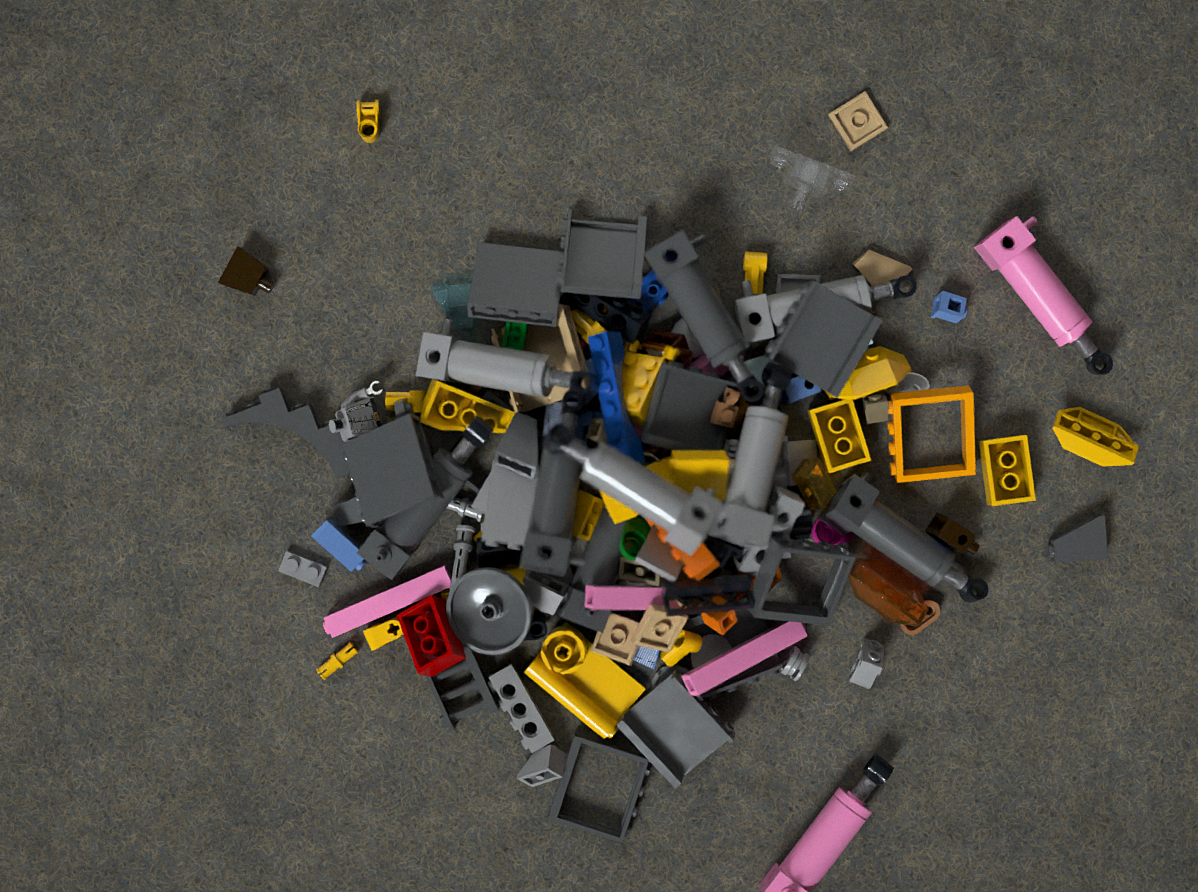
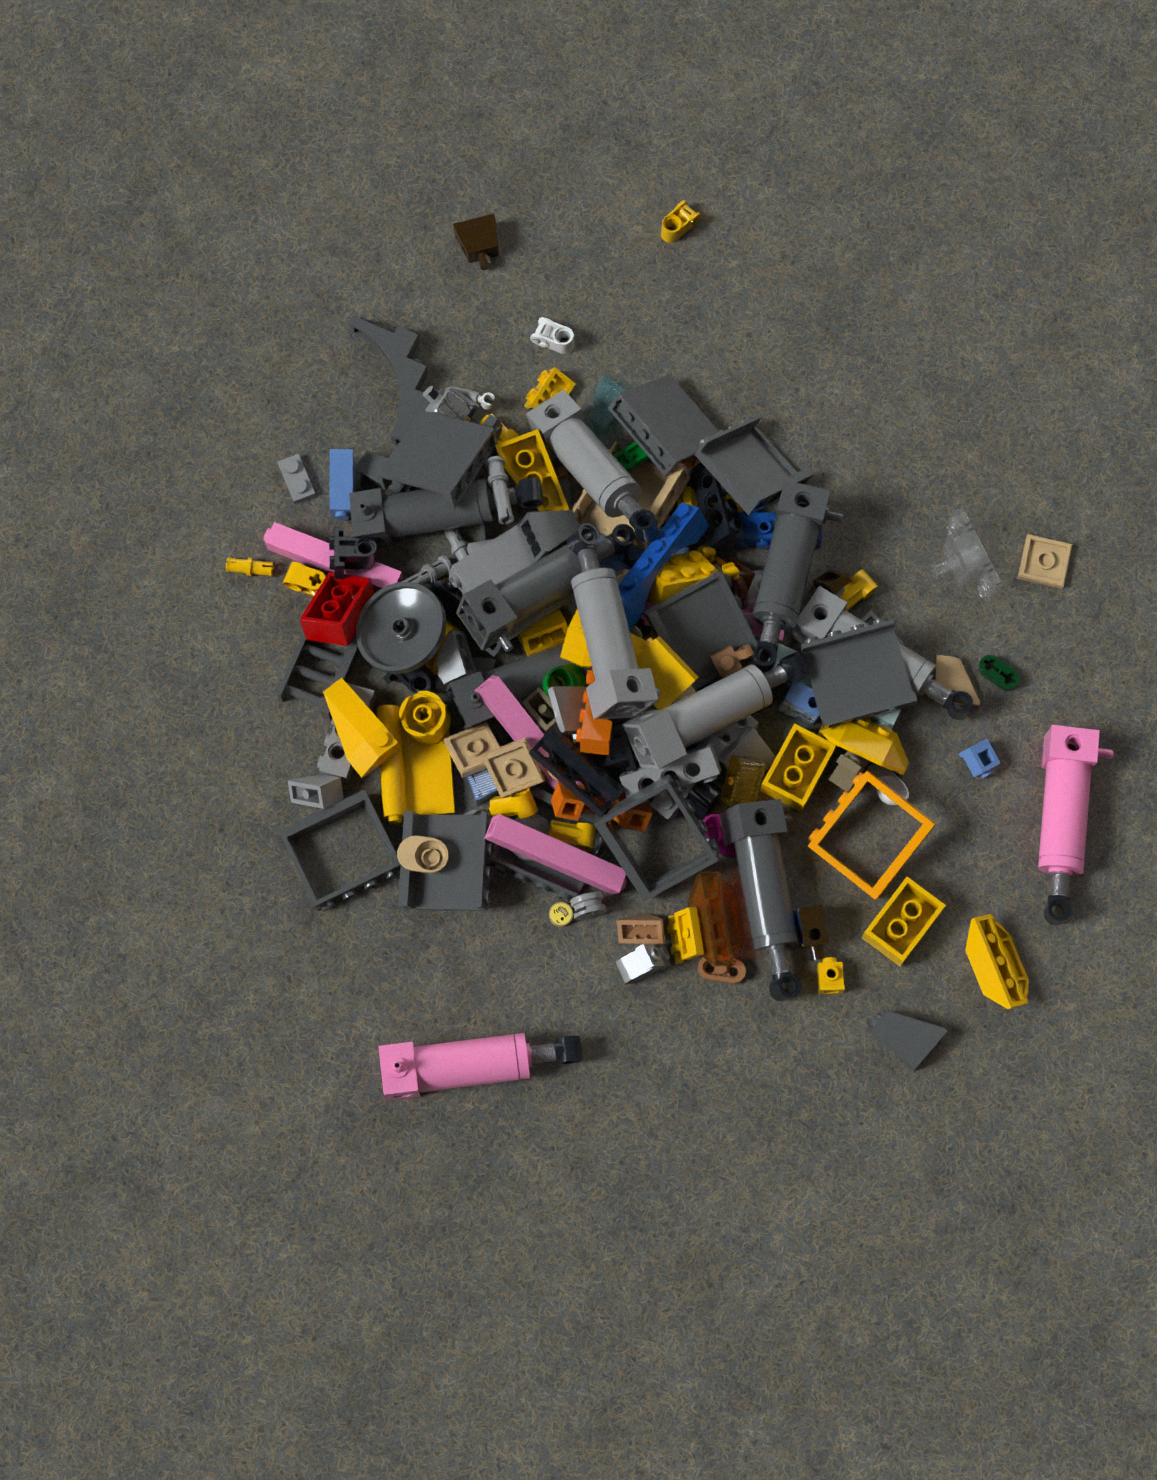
camera: 45 degrees right, 15 degrees down
(367, 293) = (549, 335): none -> white piece
(397, 593) = (349, 553): none -> black pin
(407, 335) = (550, 384): none -> yellow bracket
(450, 447) = (498, 481): none -> light grey pin
(531, 702) = (362, 734): none -> yellow wedge
(658, 742) = (422, 854): none -> tan cap
(735, 283) = (832, 581): none -> dark brown tile
(743, 627) = (577, 835): none -> yellow piece
(780, 684) = (560, 914): none -> tile
(842, 643) = (641, 929): none -> medium nougat slope
(877, 620) = (685, 935): none -> yellow plate
(902, 227) = (1001, 668): none -> dark green beam
(1000, 558) = (826, 984): none -> yellow brick

